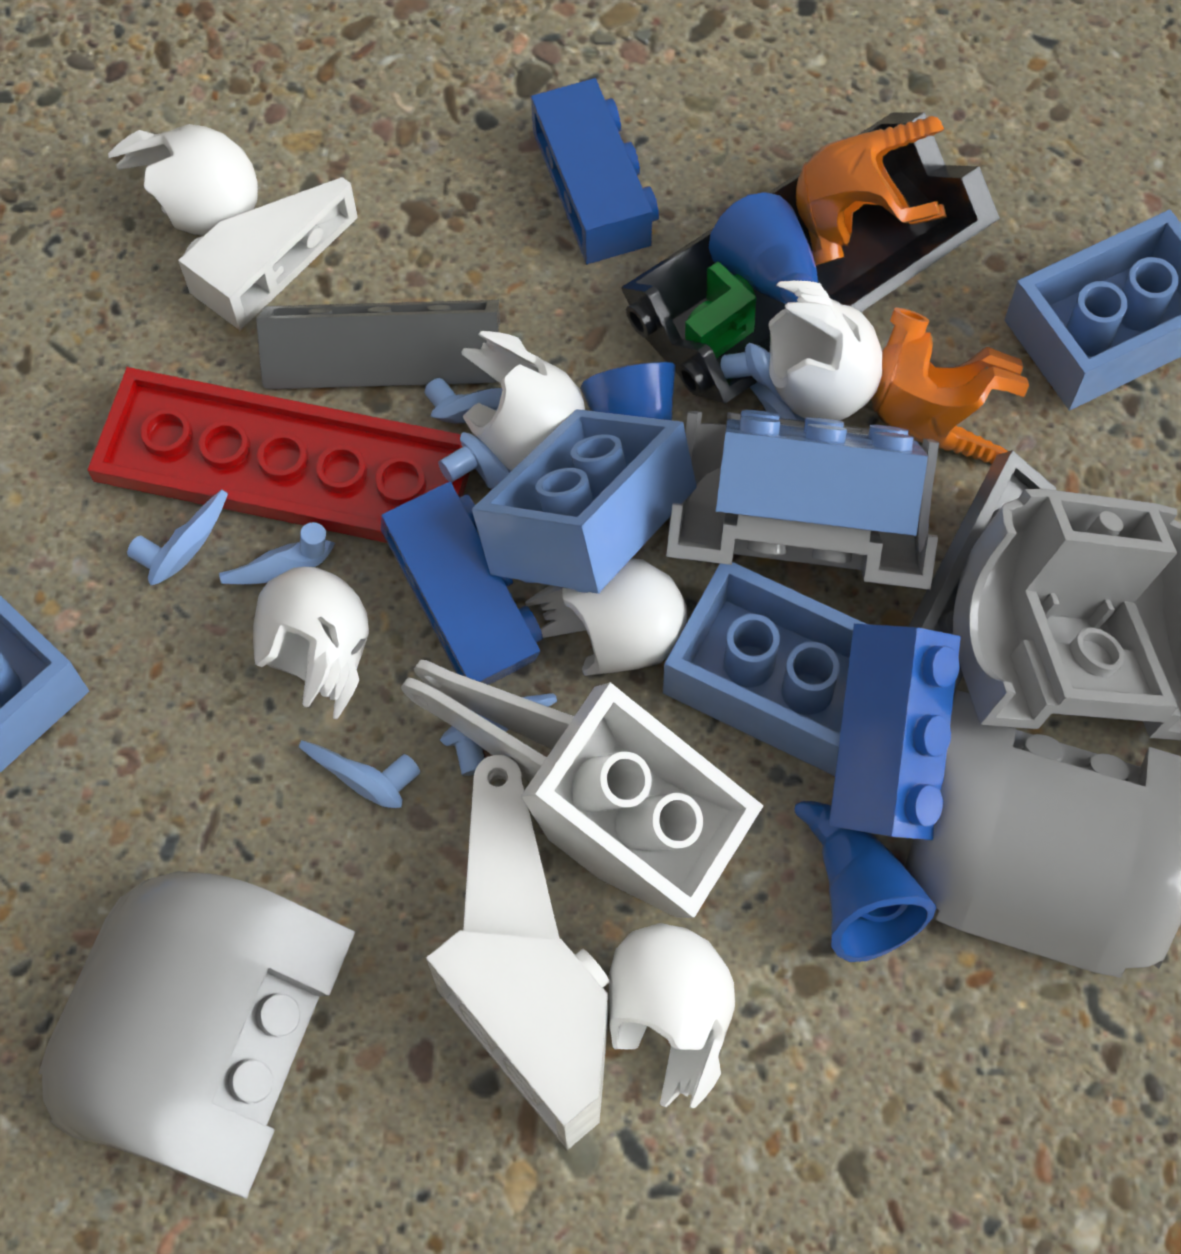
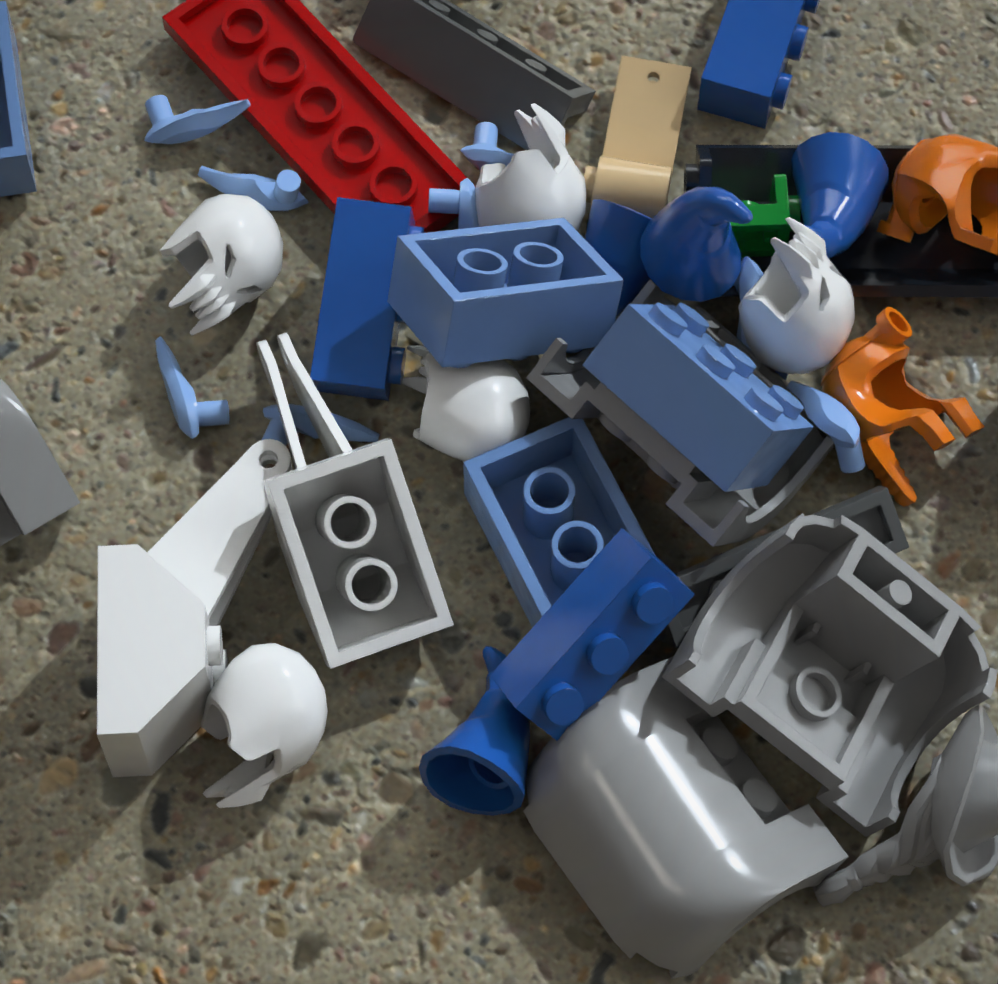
camera: 35 degrees right, 0 degrees up
(568, 310) = (641, 136): none -> tan door
(703, 354) = (692, 244): none -> blue hat
(927, 425) = (835, 421): none -> light blue bar

